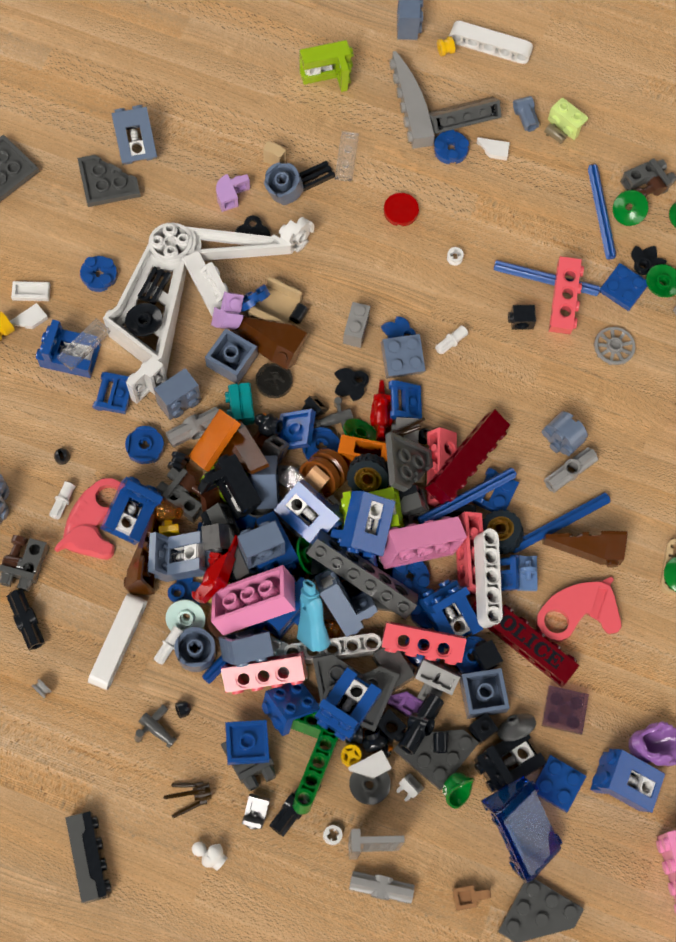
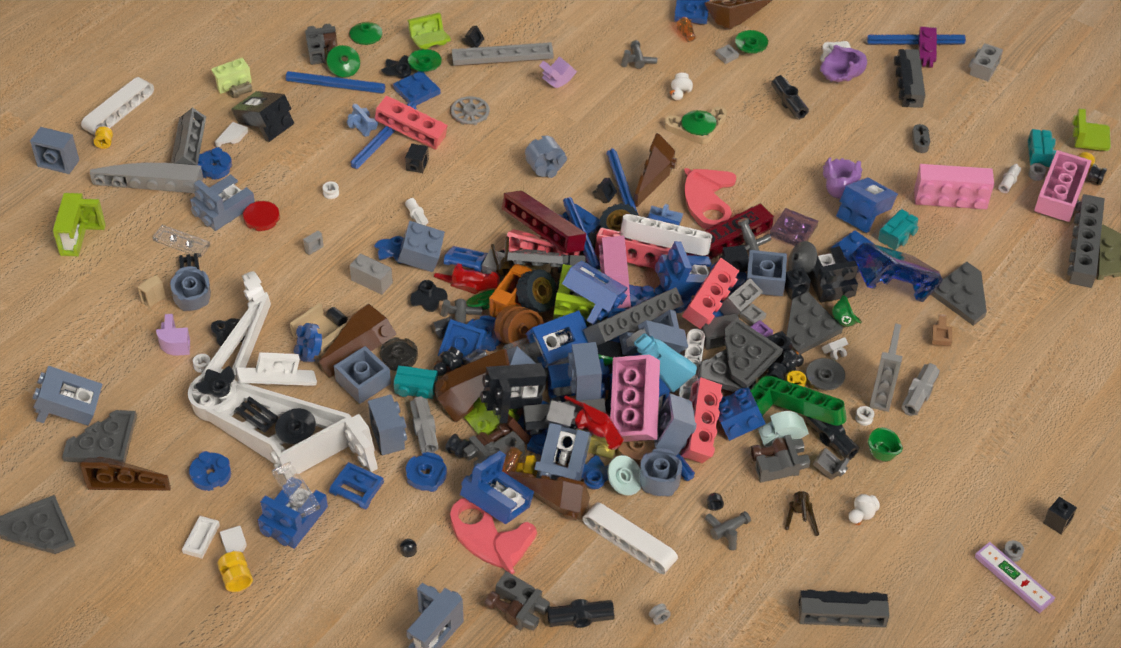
camera: 70 degrees left, 20 degrees down
(62, 500) = (459, 555): white axle -> none
(71, 203) = (112, 474): none -> reddish brown wedge
(168, 645) = (647, 496): white axle -> none
(174, 239) = (217, 383): none -> black plate
(208, 220) = (199, 359): none -> white bush
(214, 440) = (450, 403): orange tile -> none
(229, 314) = (321, 361): lavender brick -> none
(247, 742) = (767, 446): blue plate -> none
(285, 756) = (783, 424): none -> light aqua brick
(291, 861) = (884, 444): none -> green helmet
(316, 478) = (525, 324): light nougat tile -> none
(340, 722) = (757, 356): blue brick -> none
(372, 766) = (811, 365): white tile -> none
(379, 263) = (313, 242): none -> light grey tile
(397, 167) = (220, 202): none -> sand blue brick
(421, 724) = (782, 320): black piece -> none
(440, 742) = (803, 311): black hinge -> none
(522, 669) = (749, 238): none -> dark grey piece
(525, 109) = (202, 101): sand blue piece -> none
(525, 164) = (267, 111): none -> black brick
(546, 506) = (605, 190): none -> black tile
(561, 247) = (360, 120): none -> medium blue hips
(578, 463) = (578, 166): light grey piece -> none
(603, 824) = (898, 229): none -> teal brick

